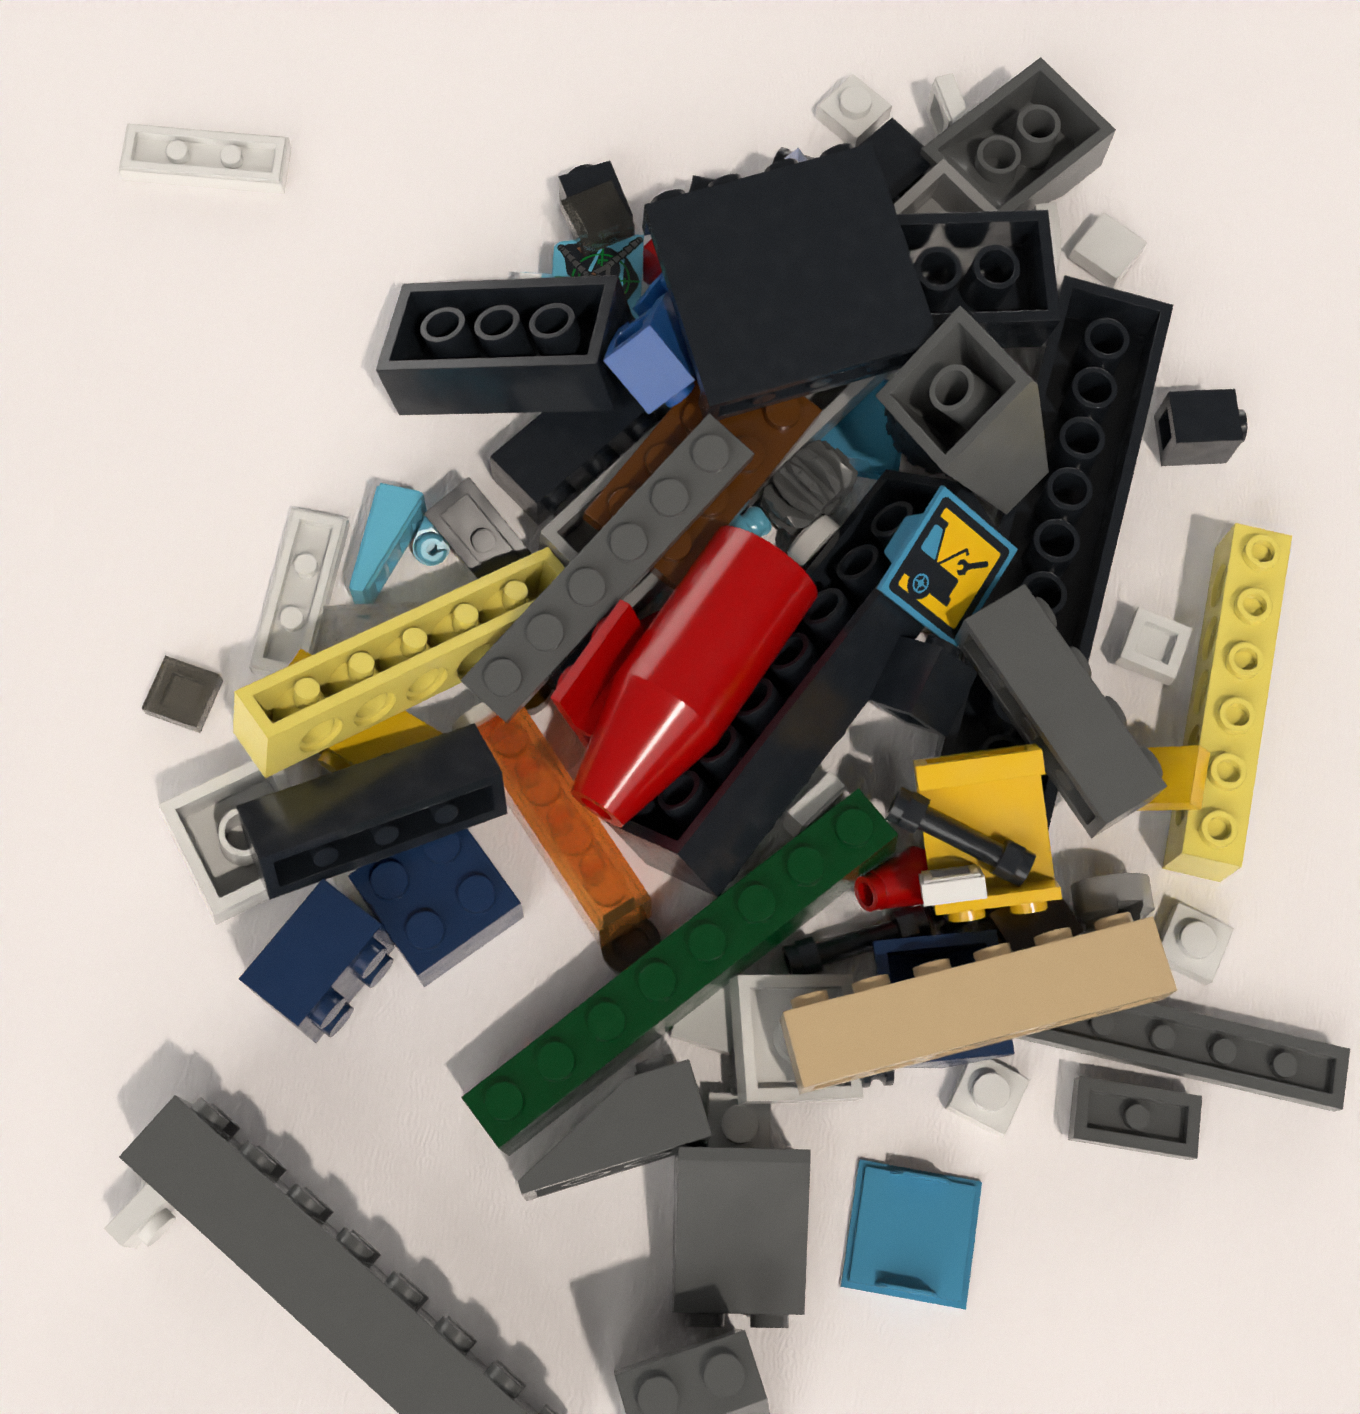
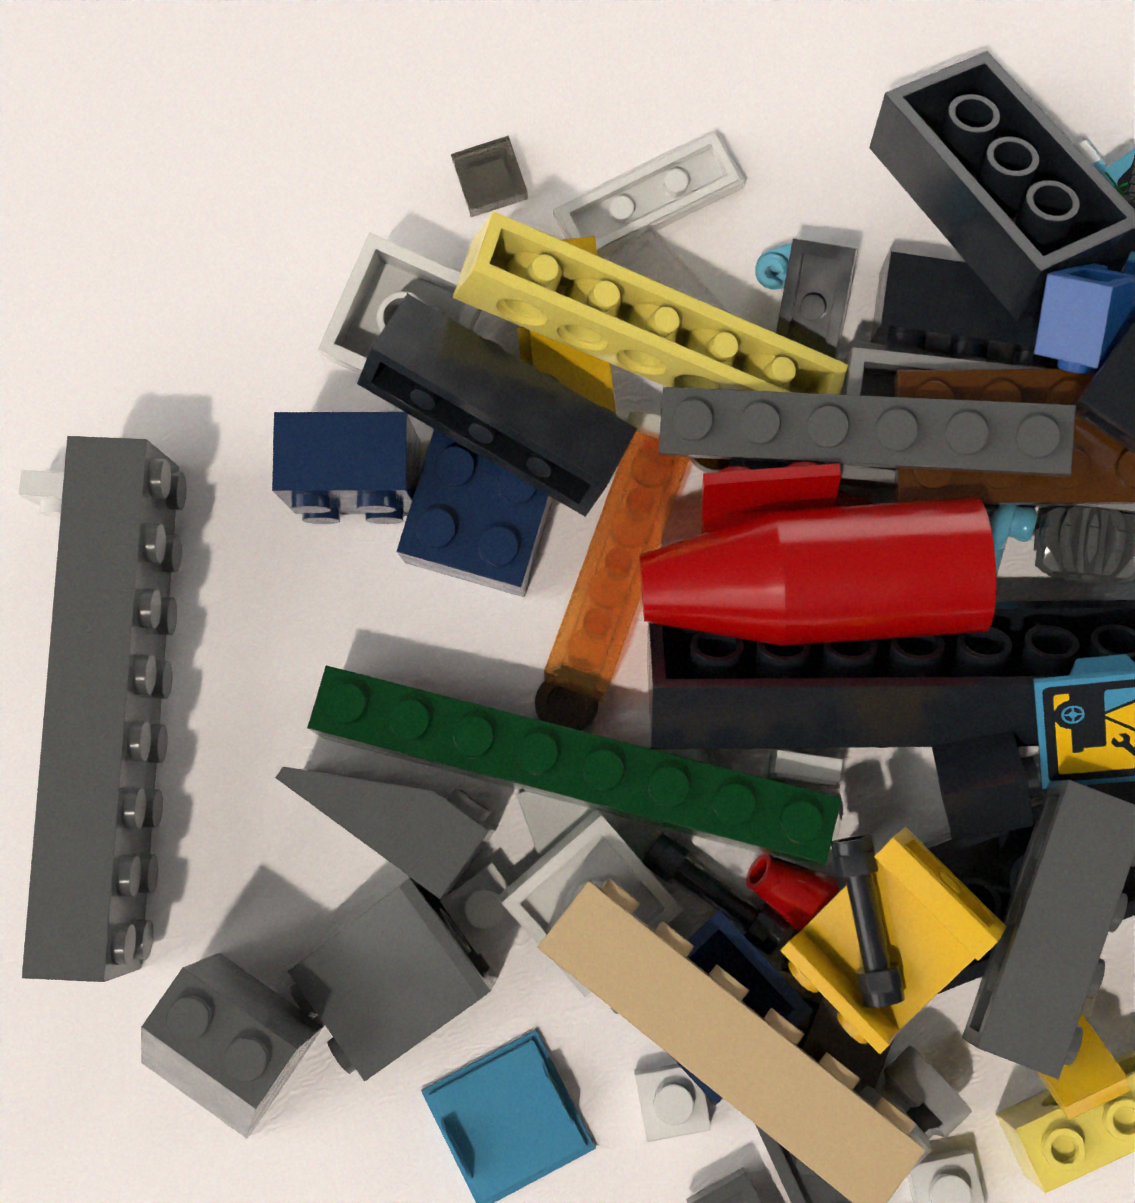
camera: 65 degrees right, 10 degrees up
(388, 532) = (747, 227): medium azure slope -> none
(812, 540) = (1045, 586): white tile -> none
(952, 885) = (818, 945): white tile -> none

